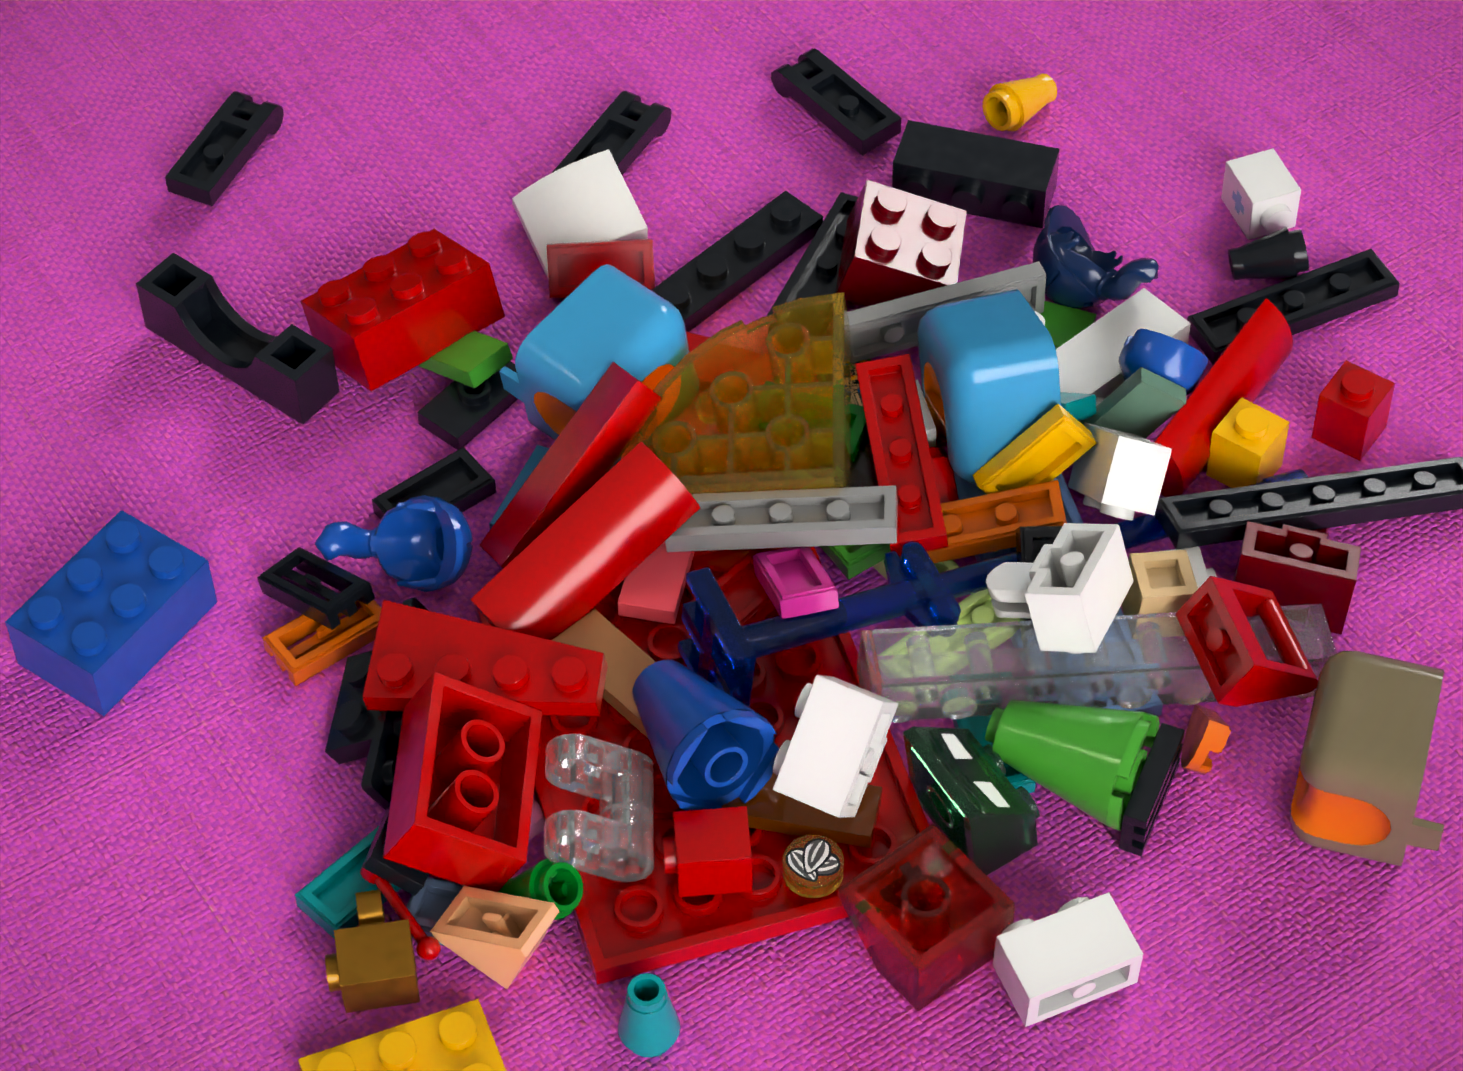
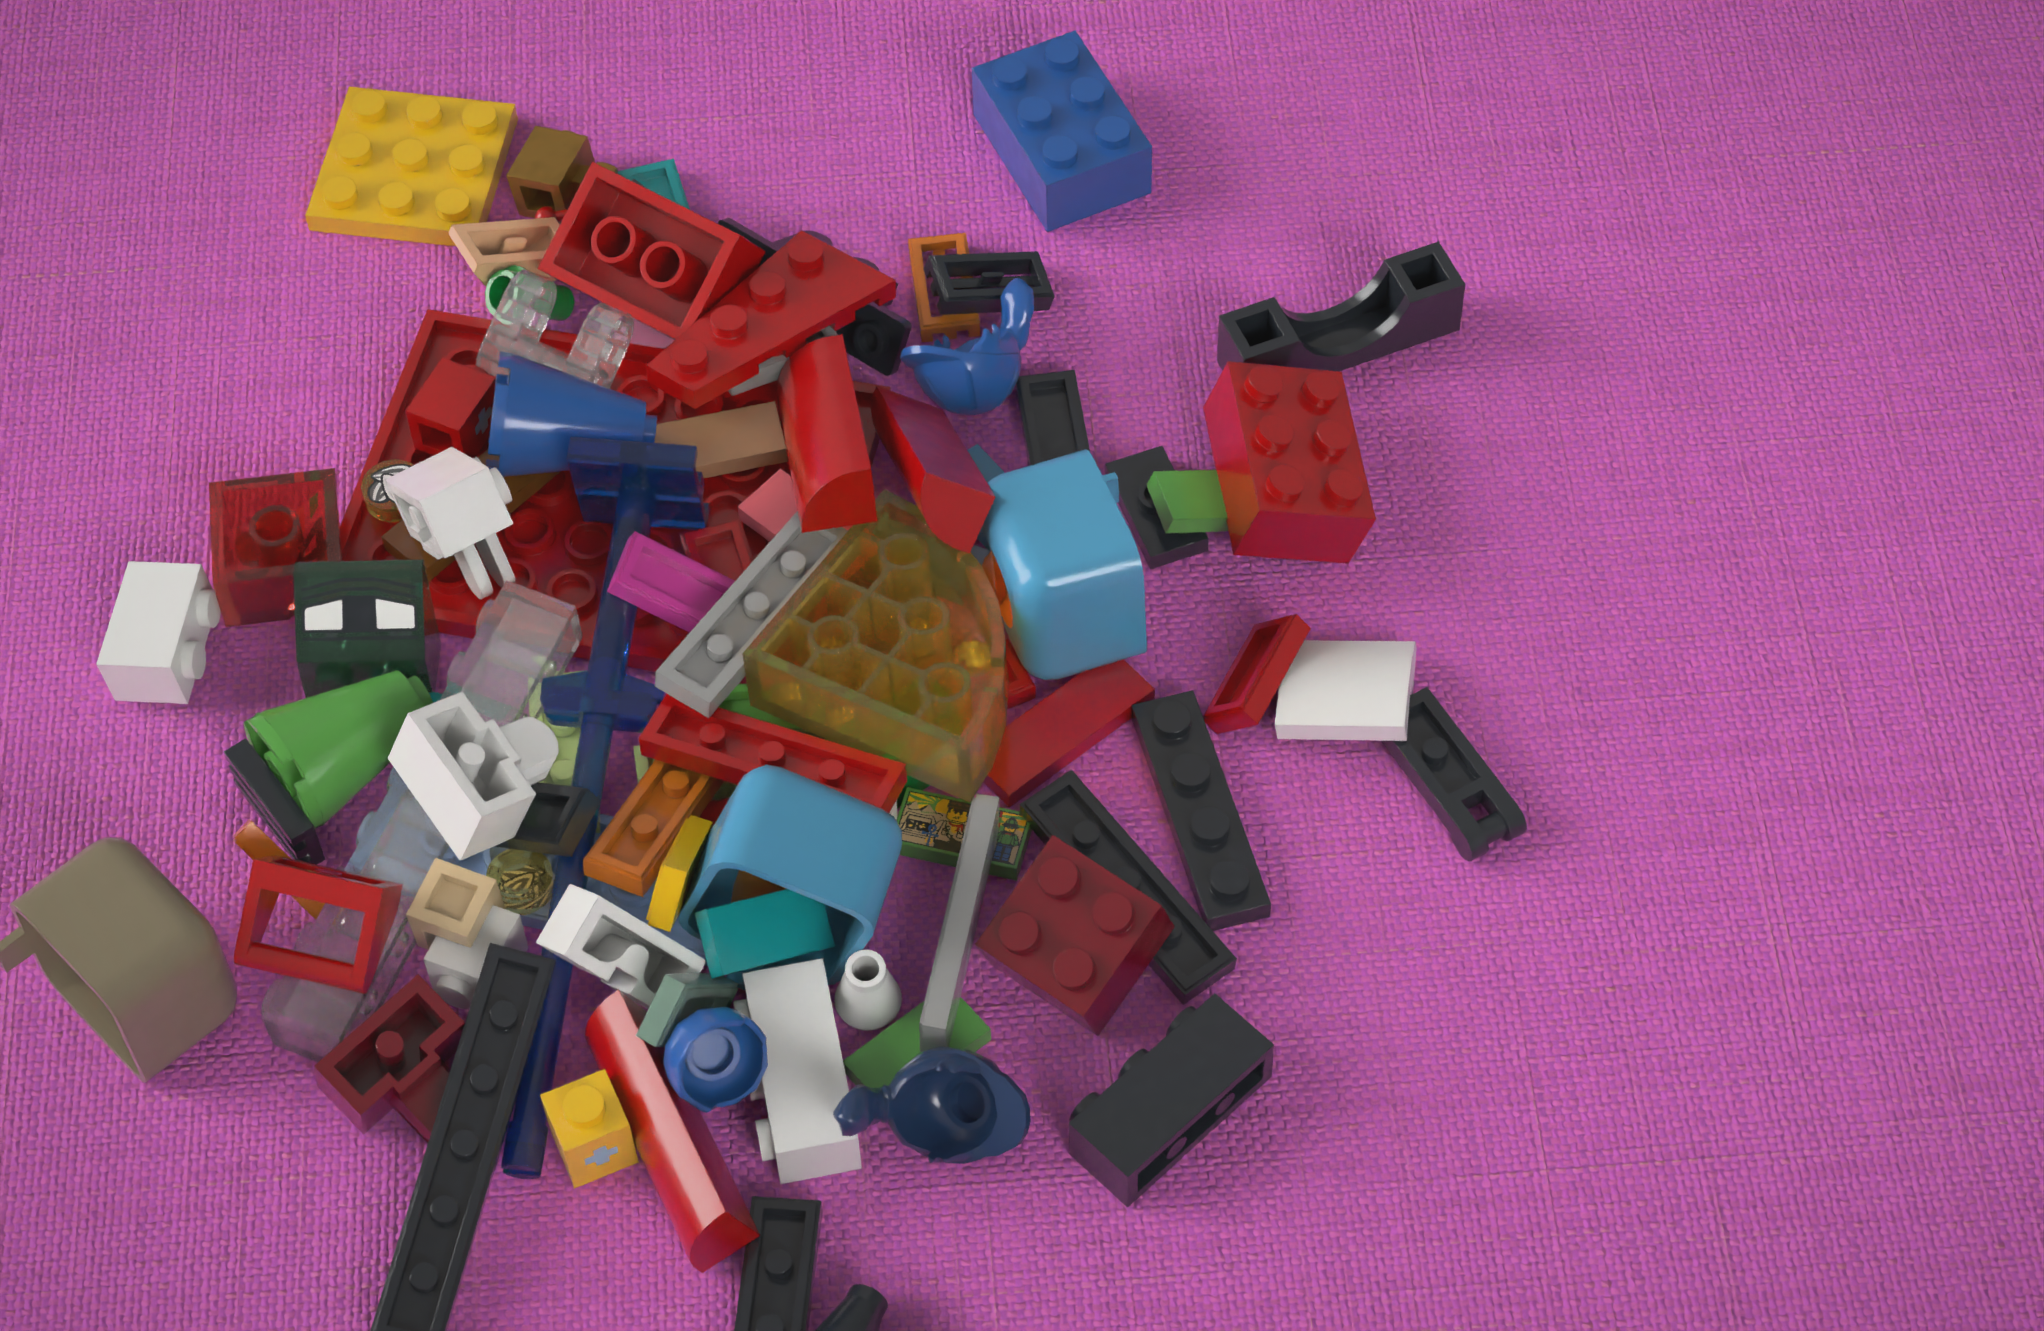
camera: 120 degrees right, 5 degrees up
(223, 148) = (1659, 431): black plate -> none
(648, 1017) = (357, 326): teal cone -> none
(837, 101) = (1389, 1028): black plate -> none
(1017, 101) = (1268, 1218): yellow cone -> none
(1353, 410) = (563, 1266): red brick -> none

